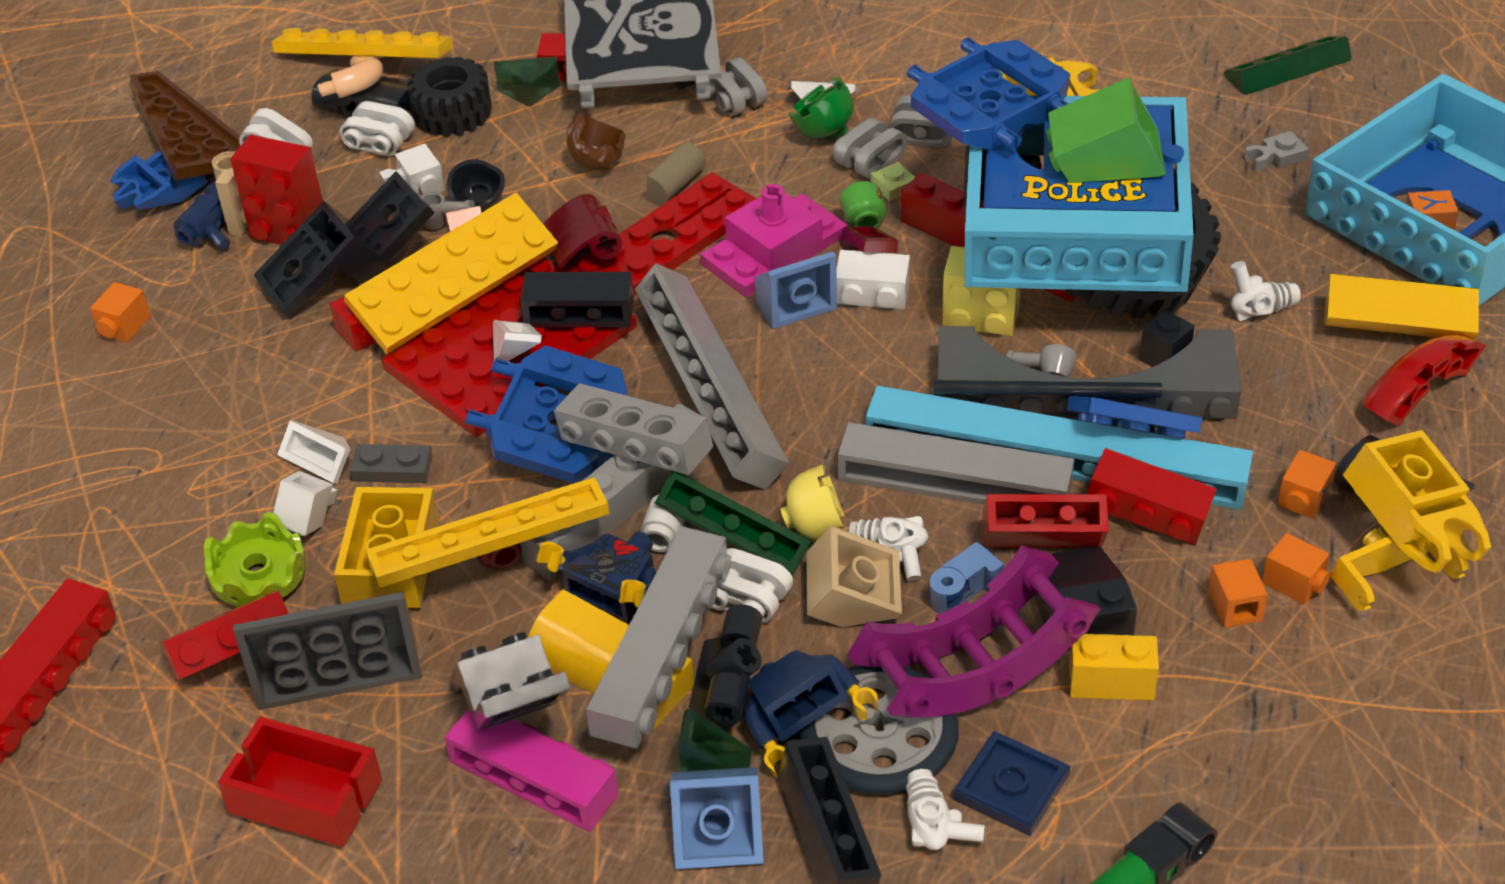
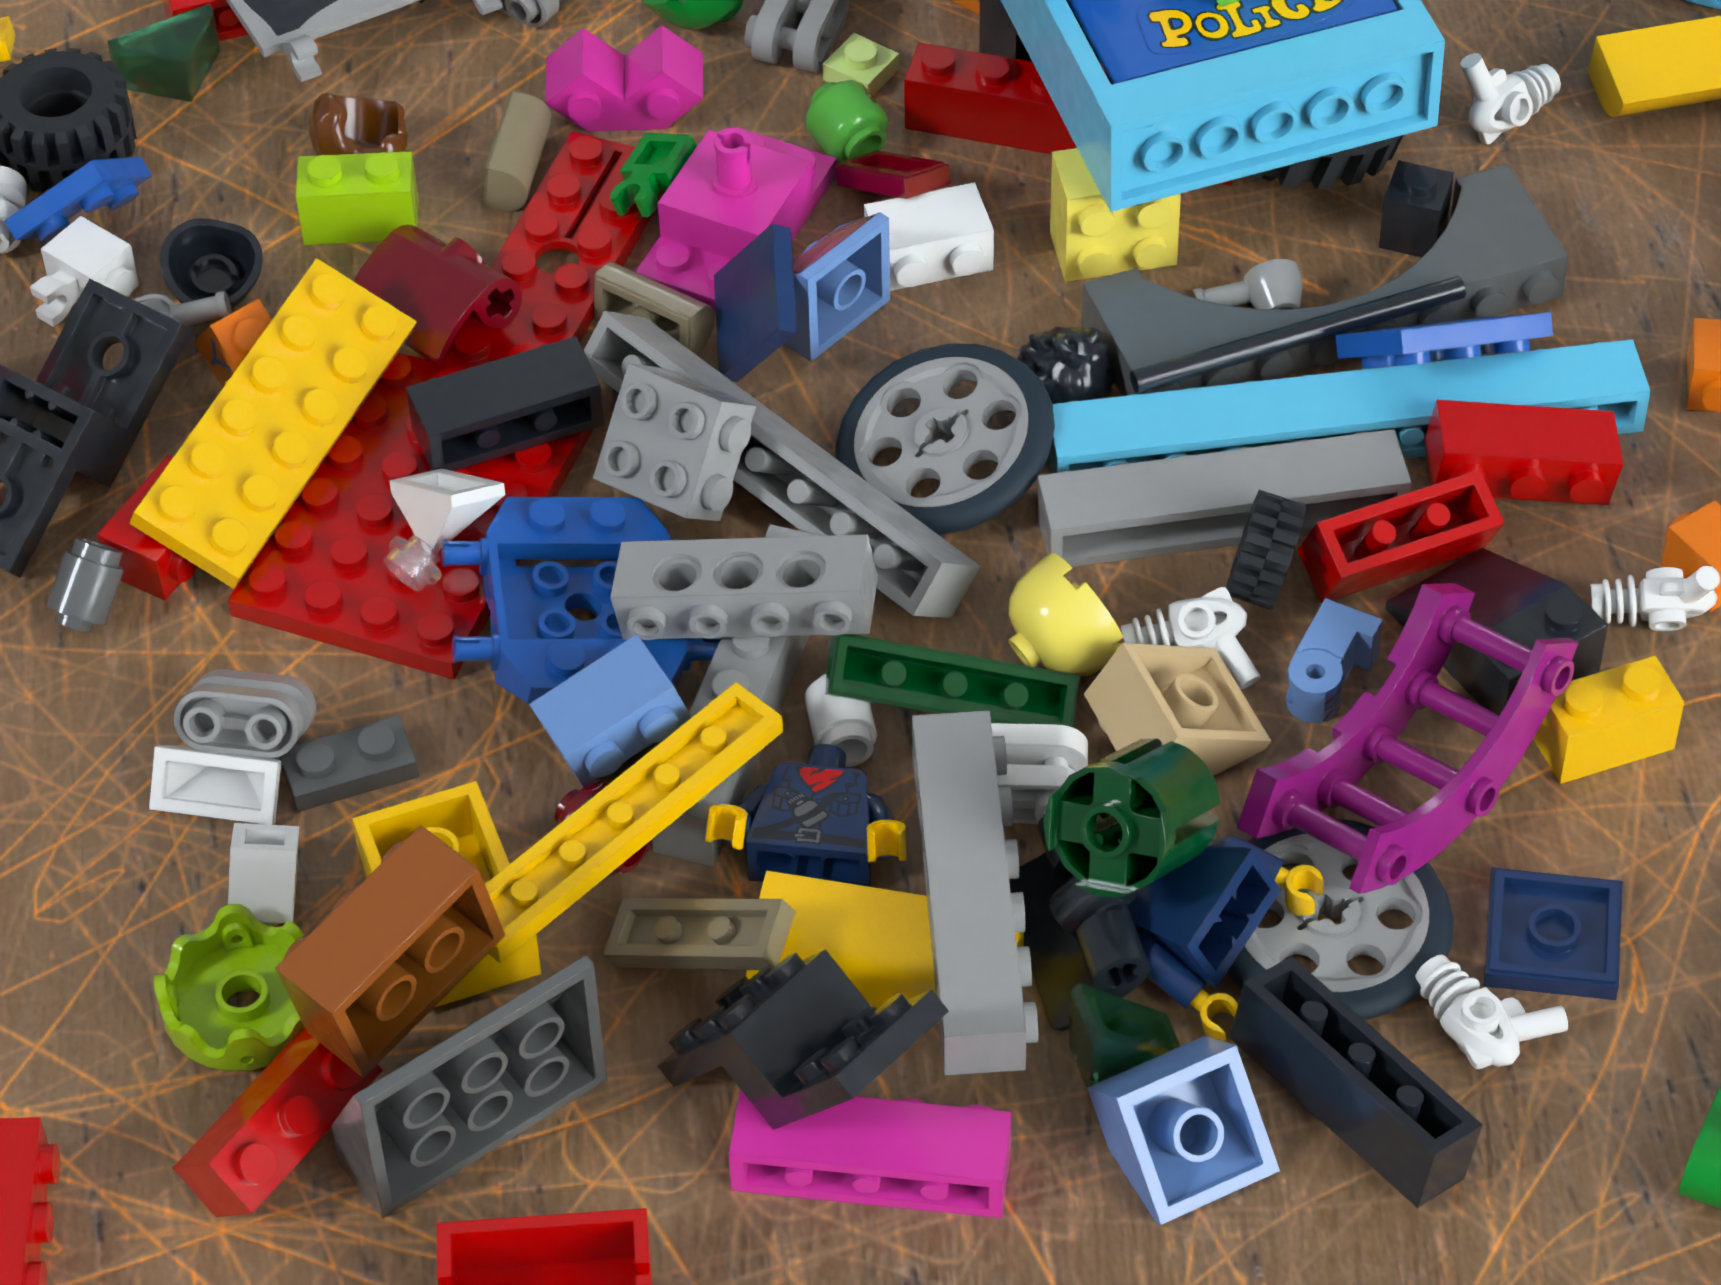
camera: 25 degrees left, 5 degrees up
(306, 556) = (391, 950): none -> dark orange brick
(311, 328) = (86, 584): none -> dark grey brick
(347, 418) = (245, 713): none -> light grey brick
(433, 129) = (89, 188): none -> blue plate
(478, 365) = (413, 562): none -> clear plate
(506, 610) = (699, 933): none -> dark tan plate
(522, 470) = (610, 711): none -> medium blue slope
(573, 171) = (355, 196): none -> lime brick
(652, 343) = (674, 442): none -> light grey brick
(704, 279) = (631, 293): none -> dark tan brick
(732, 200) = (651, 169): none -> green plate
(745, 284) = (755, 302): none -> dark blue tile
(748, 158) = (621, 92): none -> dark pink brick
(763, 619) = (1132, 816): none -> dark green cylinder
(846, 406) = (928, 376): none -> light grey wedge
(902, 369) = (1070, 363): none -> black hair
(956, 503) = (1265, 549): none -> black tyre
(1190, 607) = (1661, 599): none -> white piece

